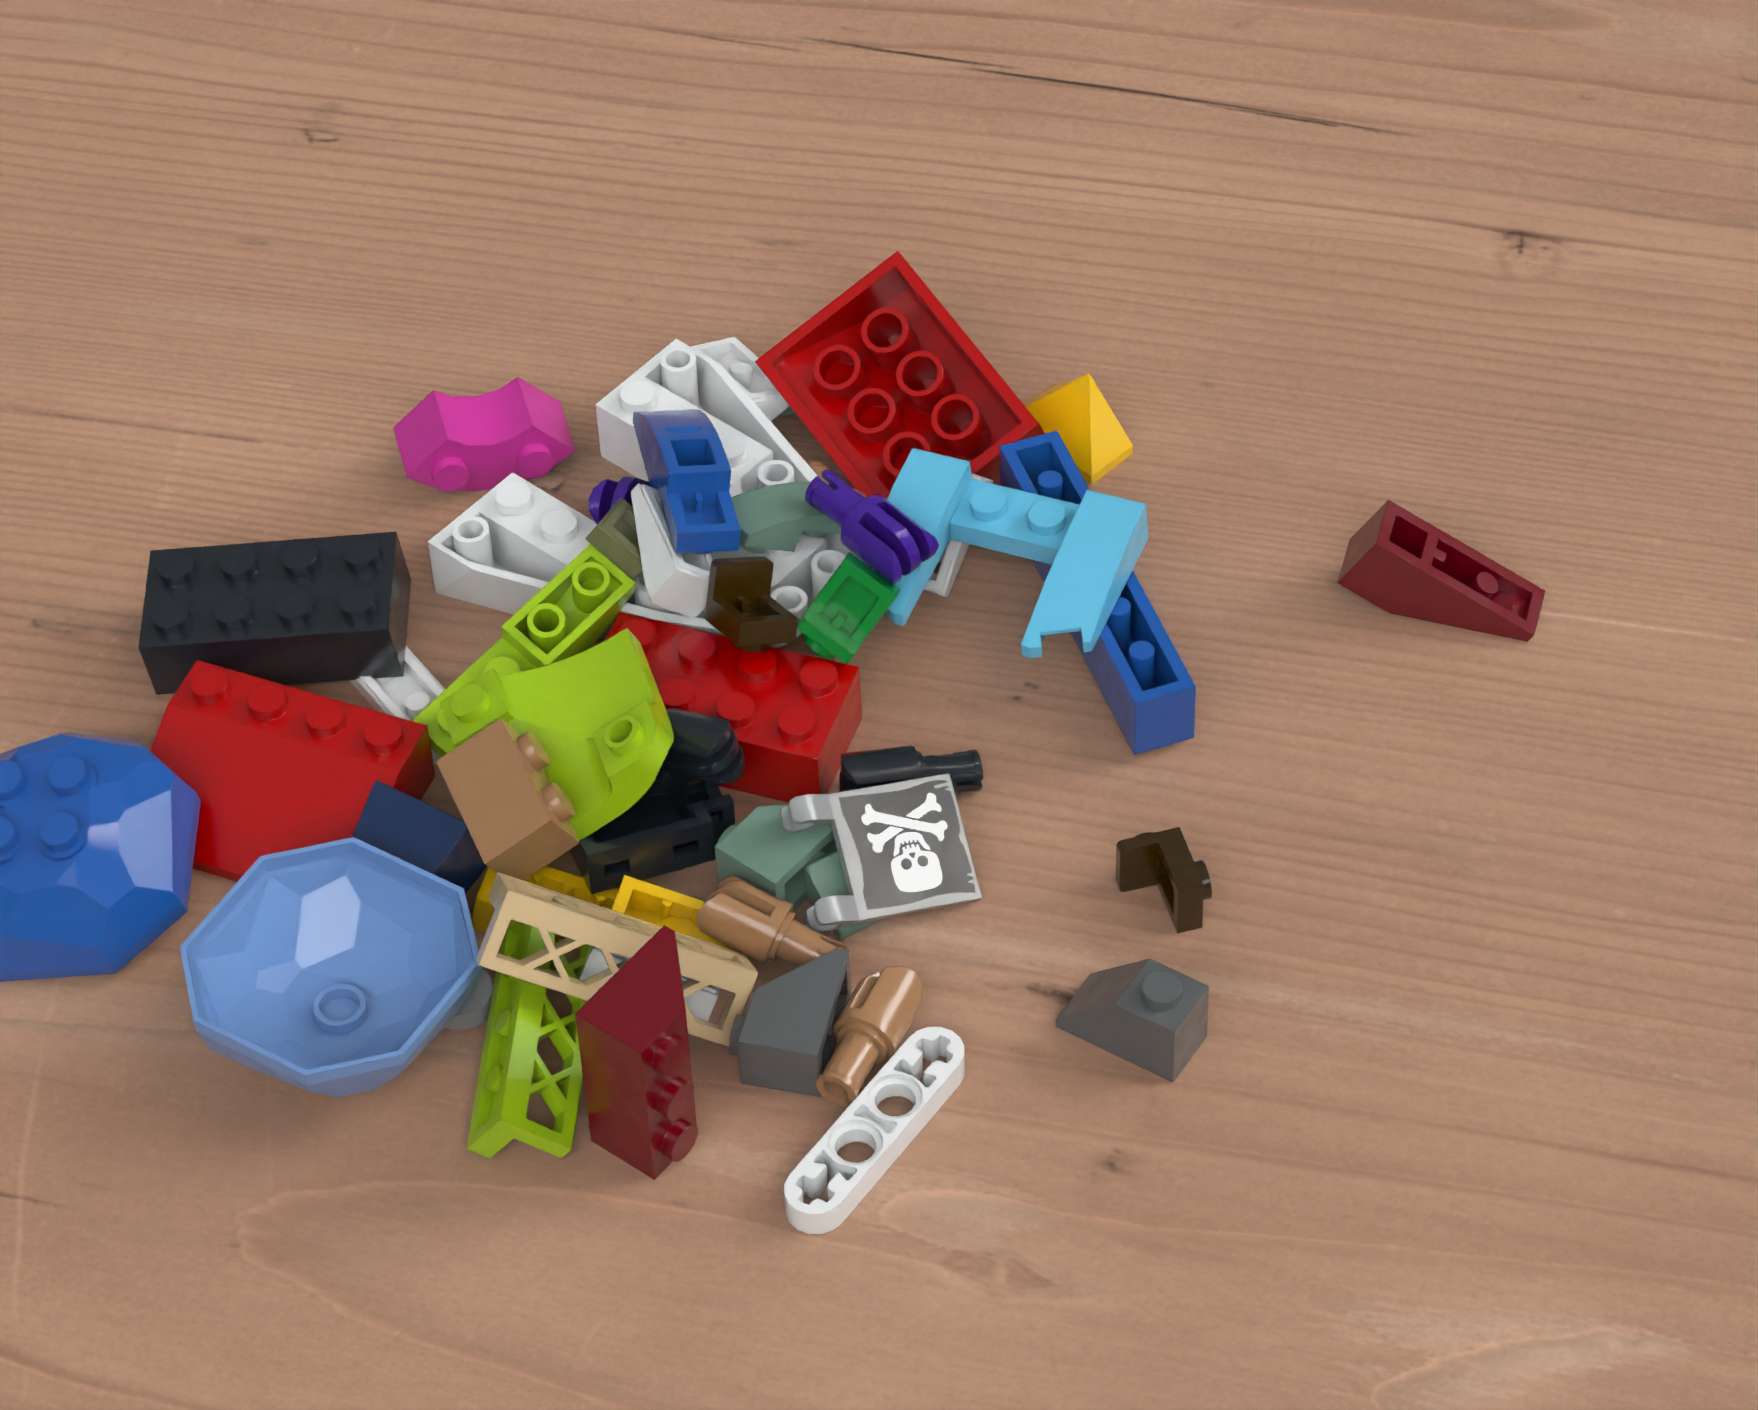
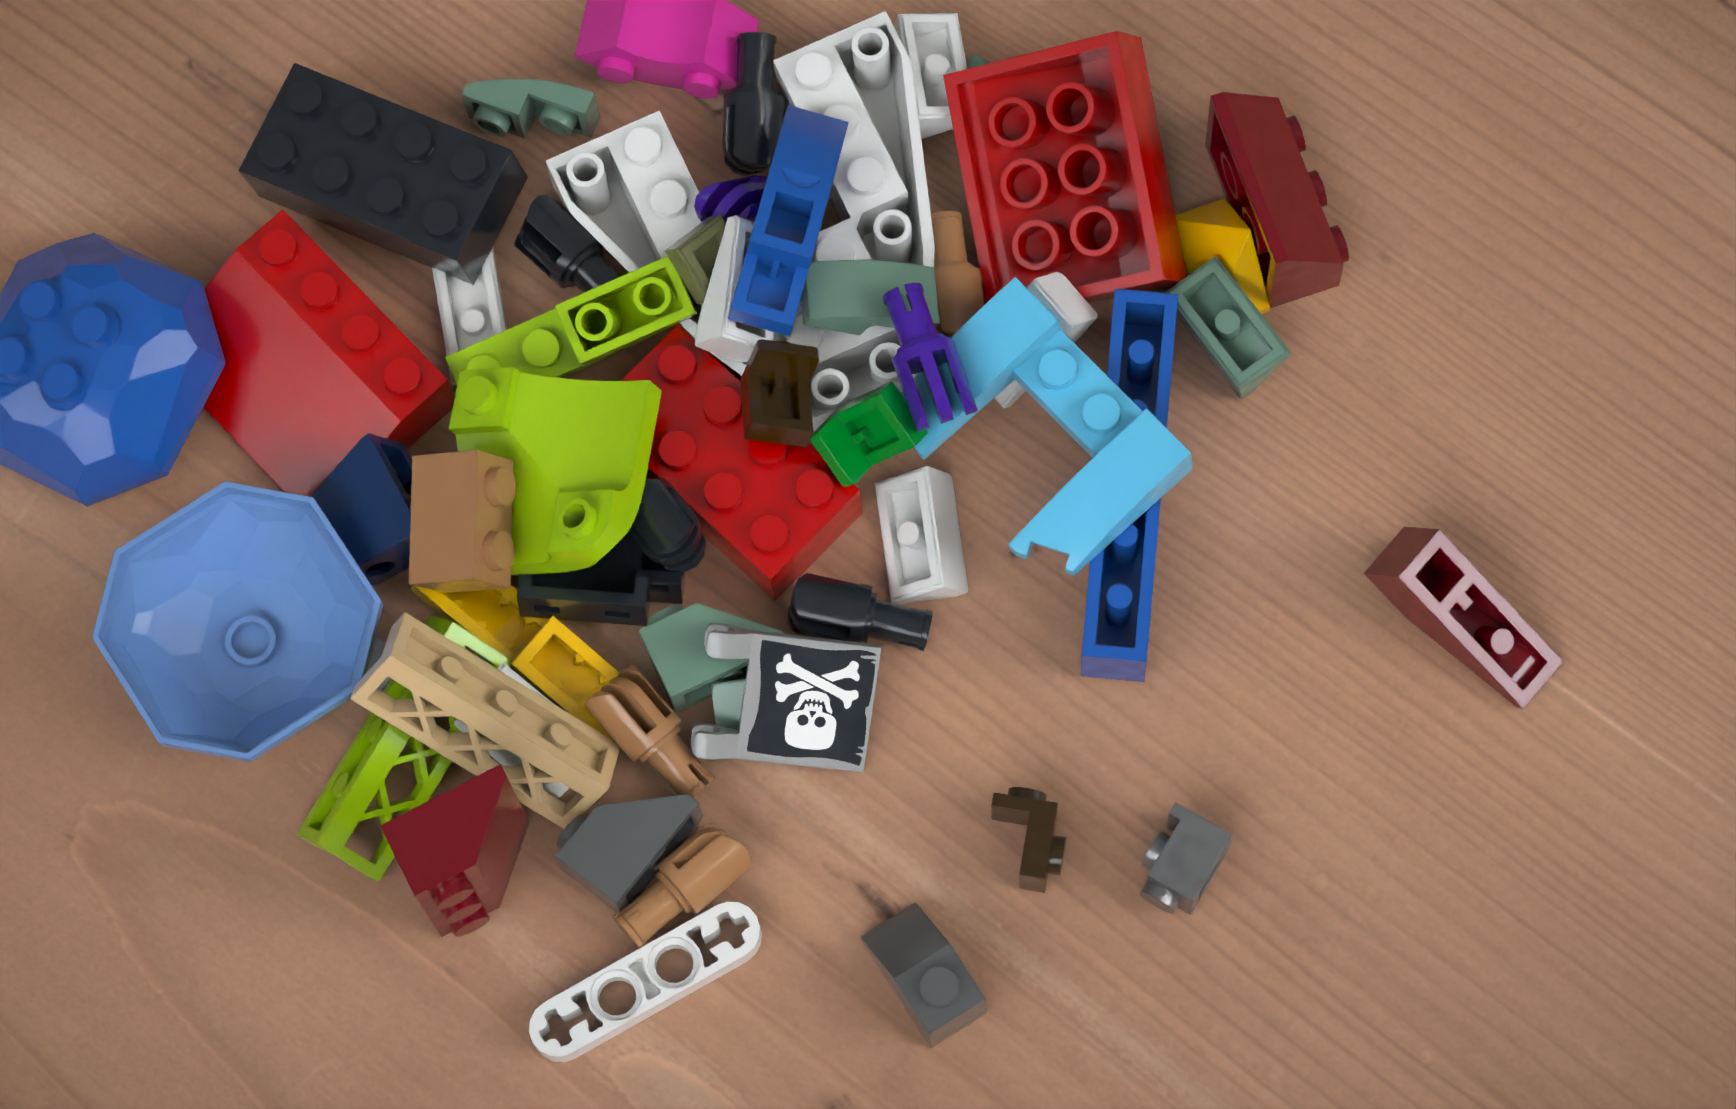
camera: 30 degrees right, 25 degrees up
(411, 513) = (514, 103): none -> sand green slope
(466, 614) = (562, 246): none -> black arm
(590, 451) = (753, 108): none -> black arm
(924, 707) = (921, 536): none -> white slope
(1060, 338) = (1275, 195): none -> dark red slope
(1116, 460) = (1228, 327): none -> sand green slope
(1315, 838) = (1183, 862): none -> flat silver brick

